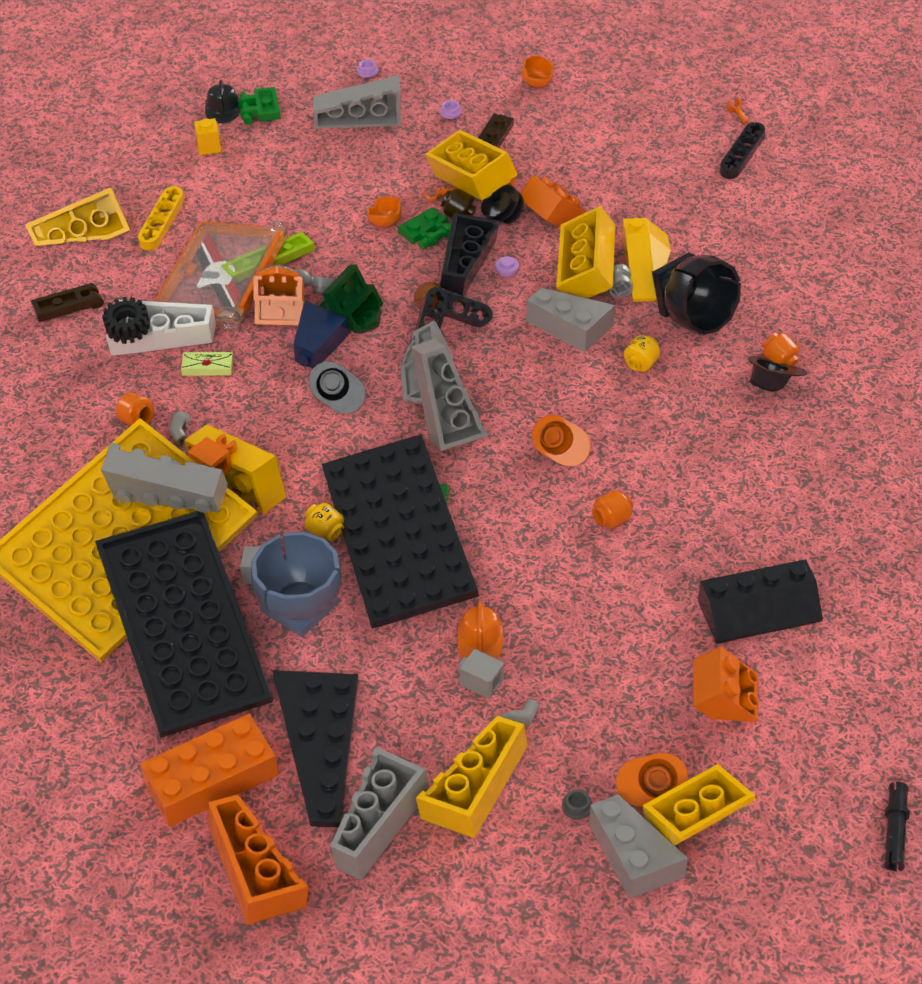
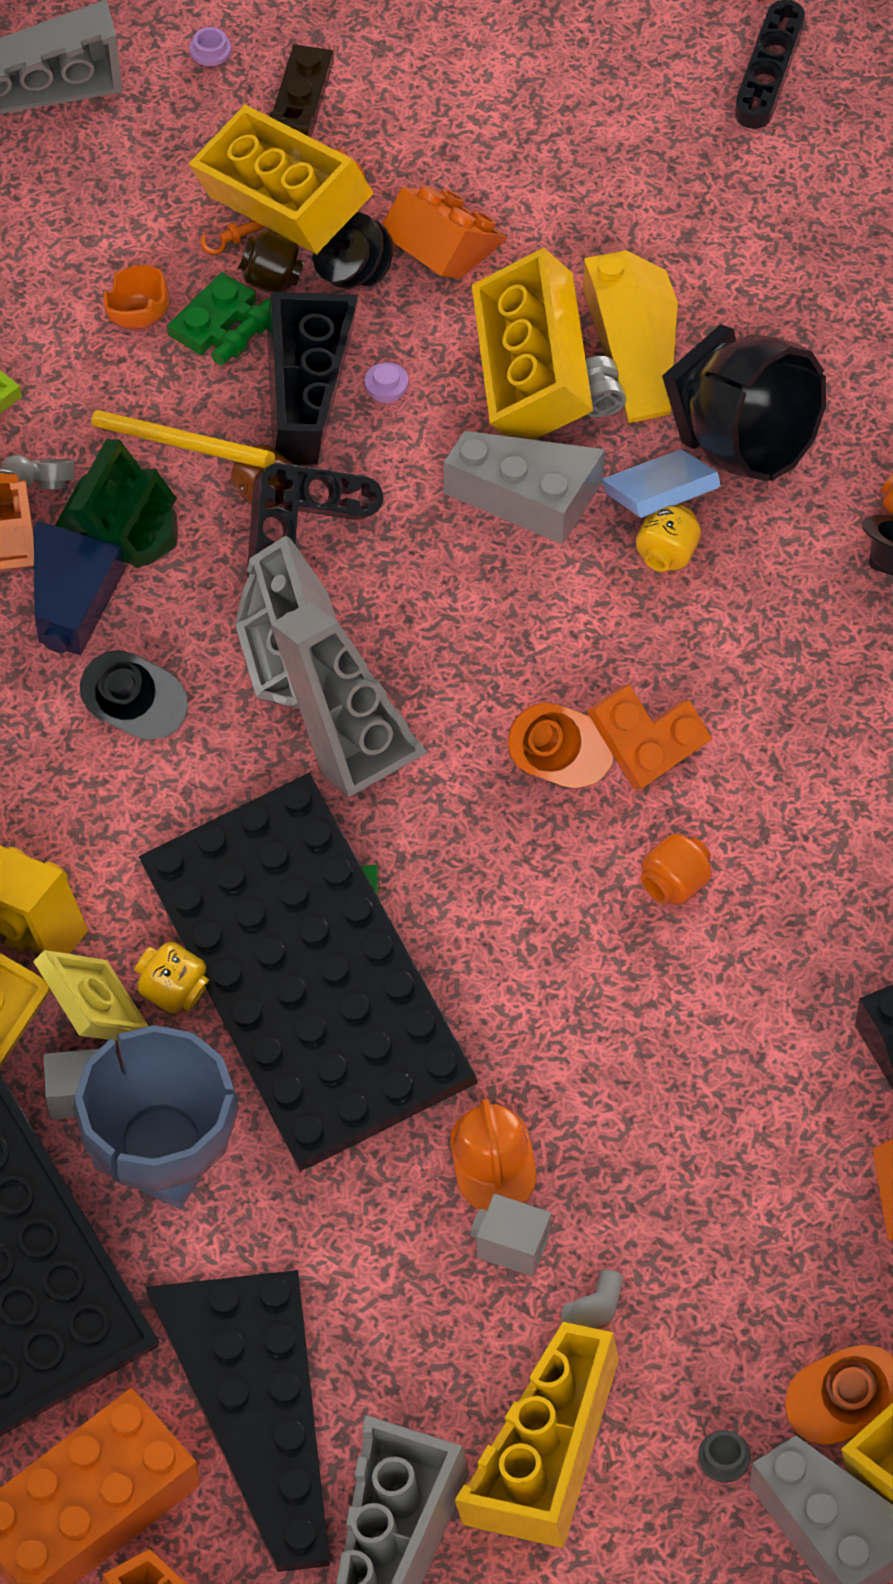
camera: 10 degrees left, 10 degrees up
(273, 517) = (90, 994): none -> light yellow tile
(395, 276) = (183, 439): none -> yellow axle
(606, 447) = (647, 746): none -> orange plate
(643, 326) = (661, 483): none -> light blue tile

